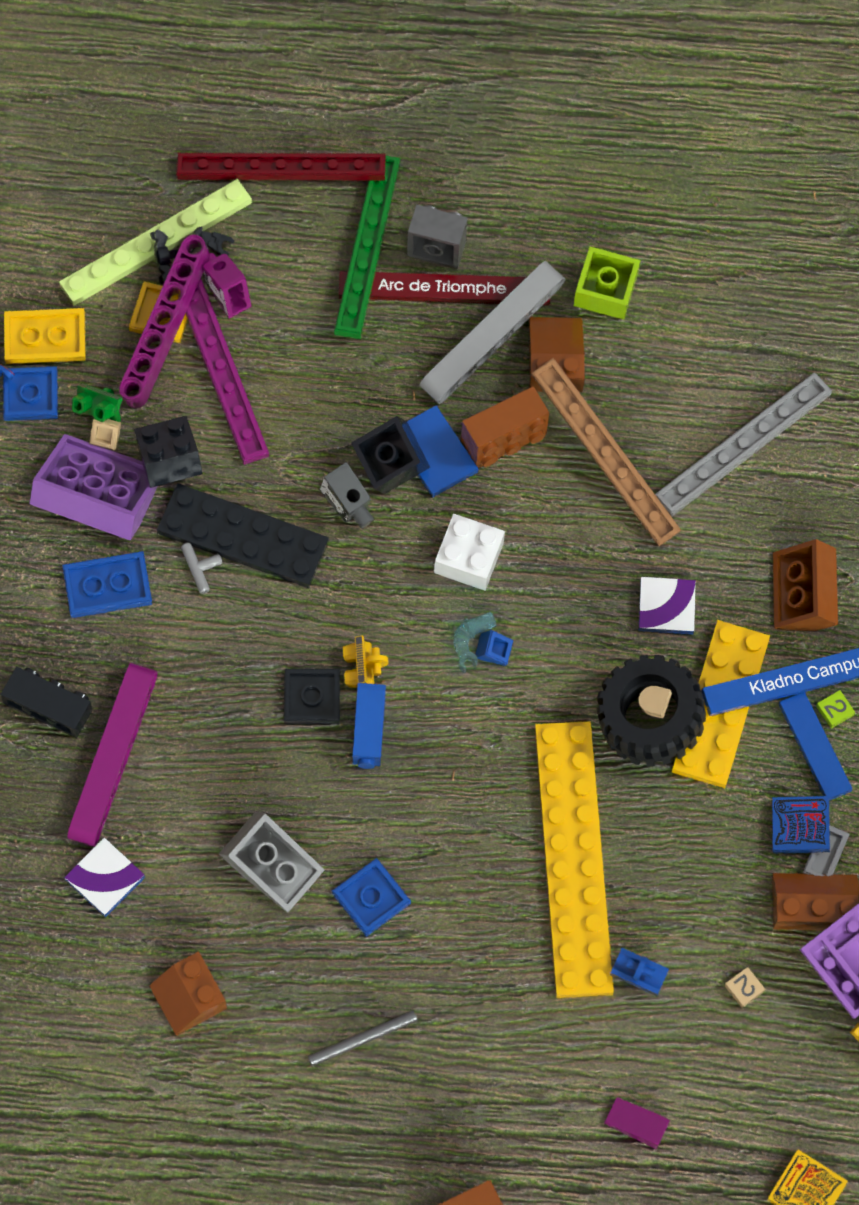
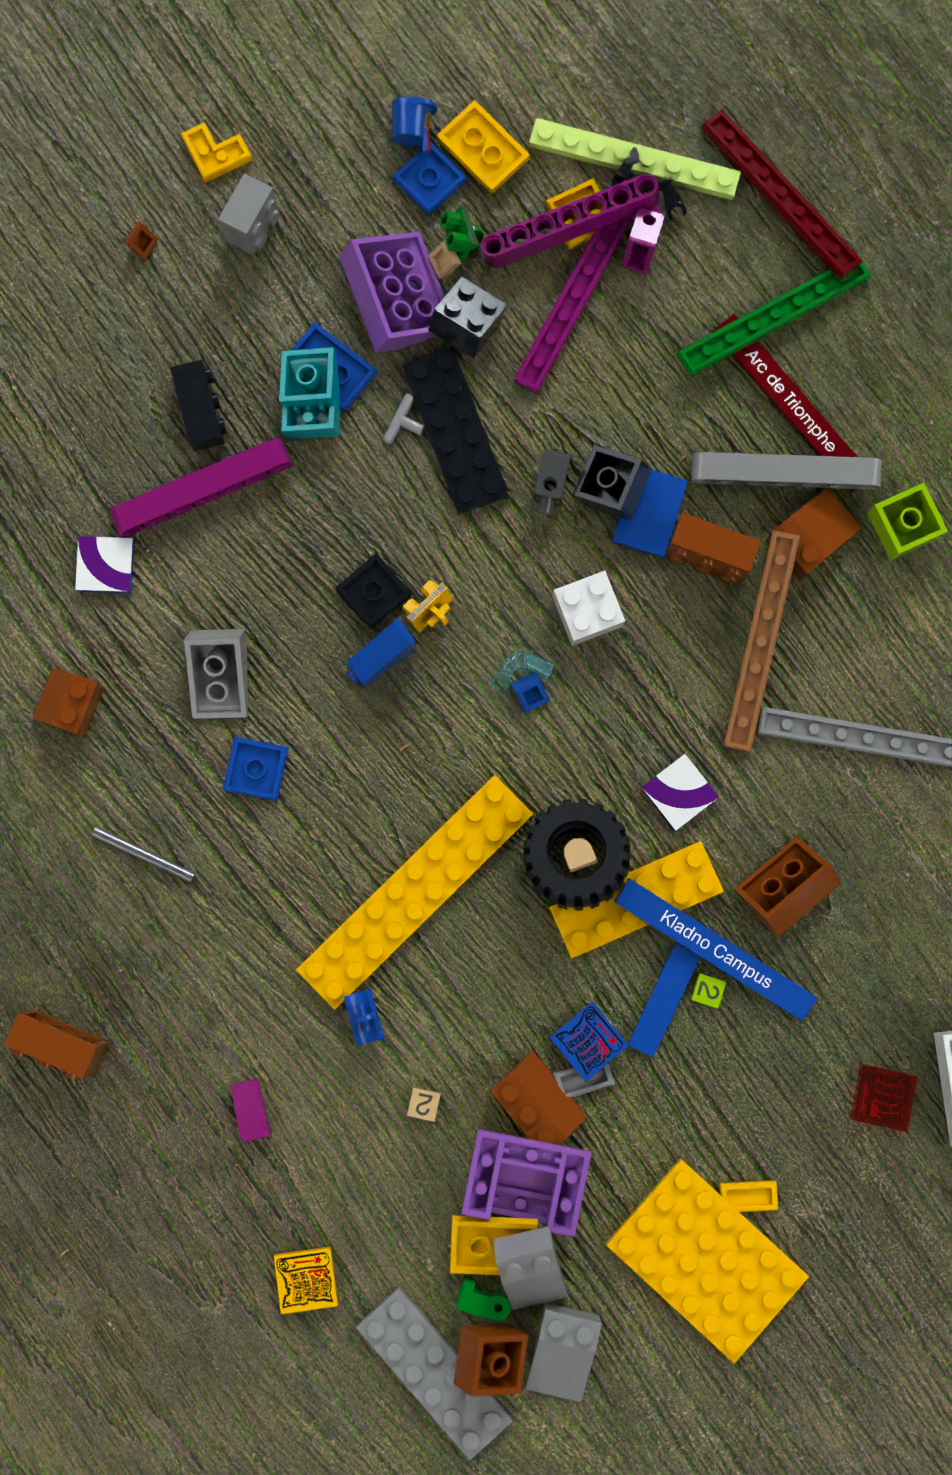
camera: 50 degrees right, 15 degrees up
(117, 611) = (310, 394): none -> teal slope
(437, 236) = (827, 359): flat silver brick -> none

